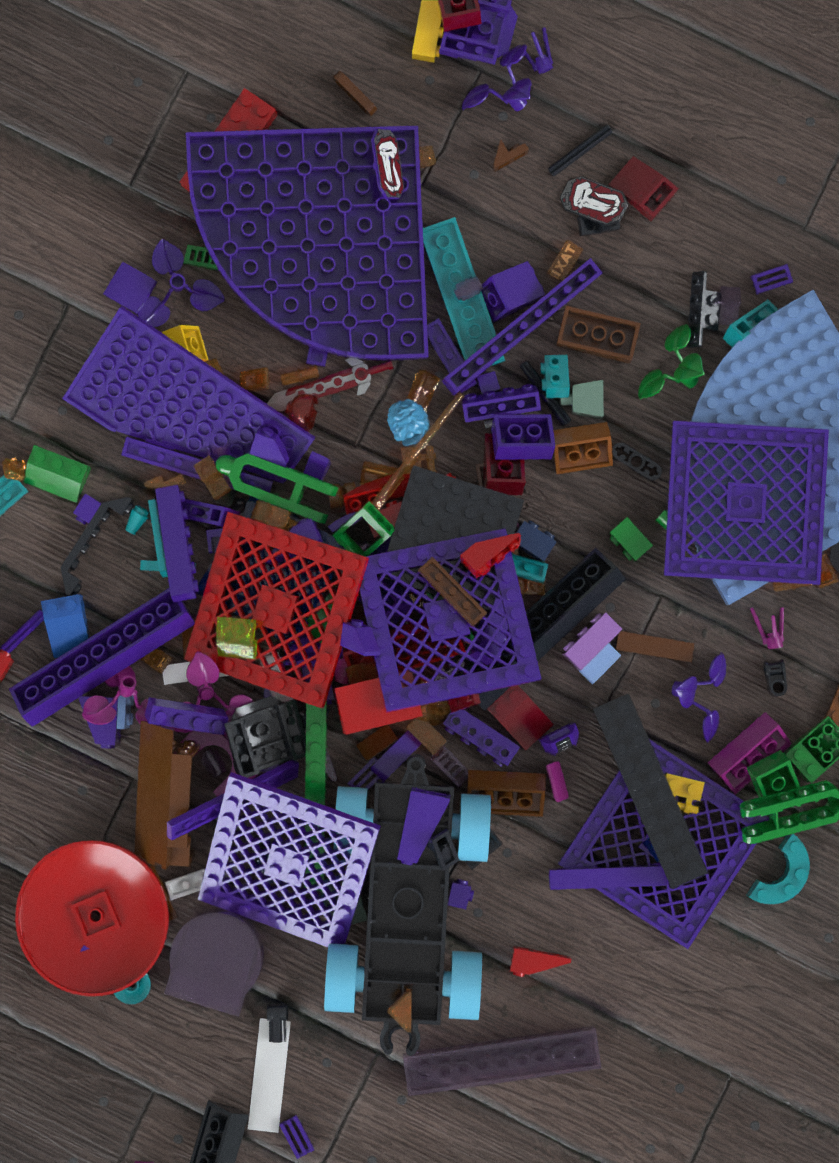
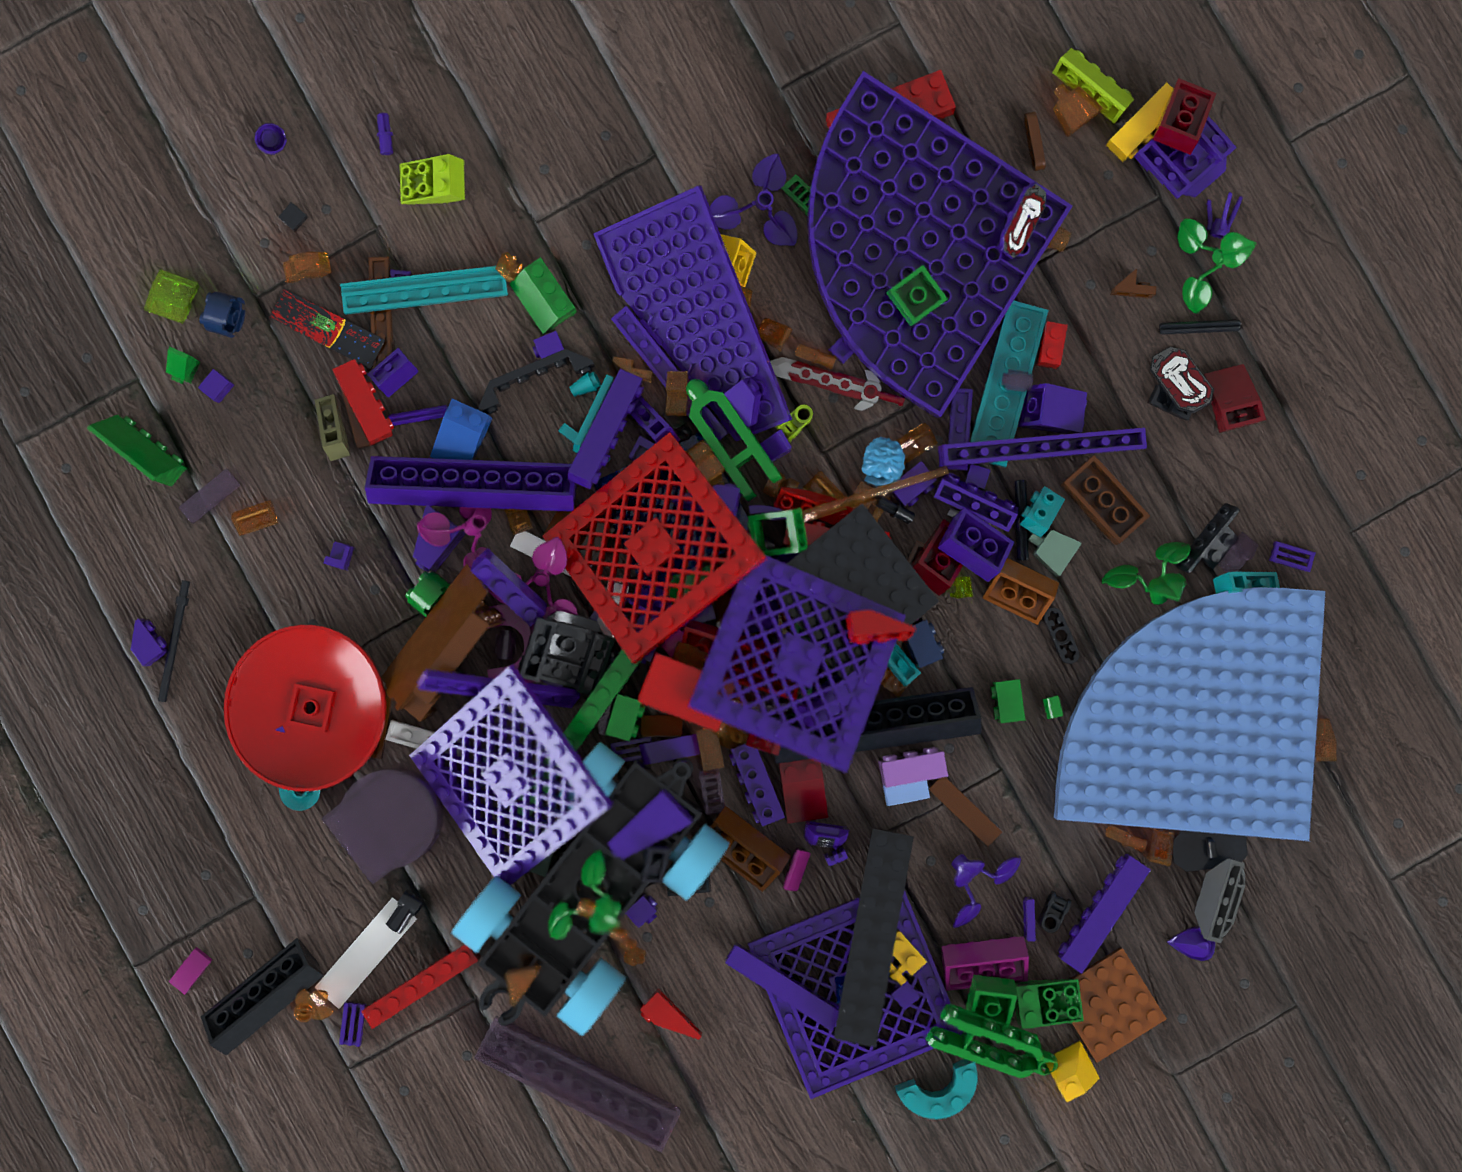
camera: 35 degrees right, 0 degrees up
(37, 782) = (339, 556): none -> dark purple panel
(124, 714) = (456, 548): medium blue plate -> none
(125, 764) = (427, 592): none -> green brick
(130, 288) = (719, 177): dark purple slope -> none
(236, 638) = (600, 548): clear neon green slope -> none
(255, 1141) = (313, 1005): none -> clear orange plate
(303, 410) = (796, 388): clear red cylinder -> none
(321, 438) = (795, 425): none -> lime piece
(328, 1069) = (420, 985): none -> red brick
(344, 754) = (625, 717): none -> green brick
(345, 277) = (916, 295): none -> green brick
(359, 638) = (708, 624): dark purple slope -> none
(368, 47) = (1074, 108): none -> clear orange torso
(370, 19) = (1077, 71): none -> lime slope
(429, 909) = (606, 909): none -> green plant
(443, 452) = (895, 510): none -> black axle
(445, 433) = (909, 494): none -> dark purple brick
(452, 591) = (820, 639): reddish brown tile -> none
(476, 242) = (1052, 345): none -> red brick
(476, 931) = (633, 954): none -> clear orange bar
(515, 96) = (1173, 237): dark purple plant -> none
(536, 476) = (963, 588): none -> clear neon green tile
(564, 79) = (1233, 253): none -> green plant
(565, 260) = (1119, 415): clear orange tile -> none
(580, 750) = (836, 857): none -> dark purple tile
(705, 819) = (905, 995): none -> dark purple tile
(746, 502) = (1136, 740): dark purple plate -> none
(760, 695) = (1029, 918): none -> dark purple tile
(775, 638) = (1077, 877): magenta plant -> none
(813, 652) = (1103, 912): none -> dark purple brick

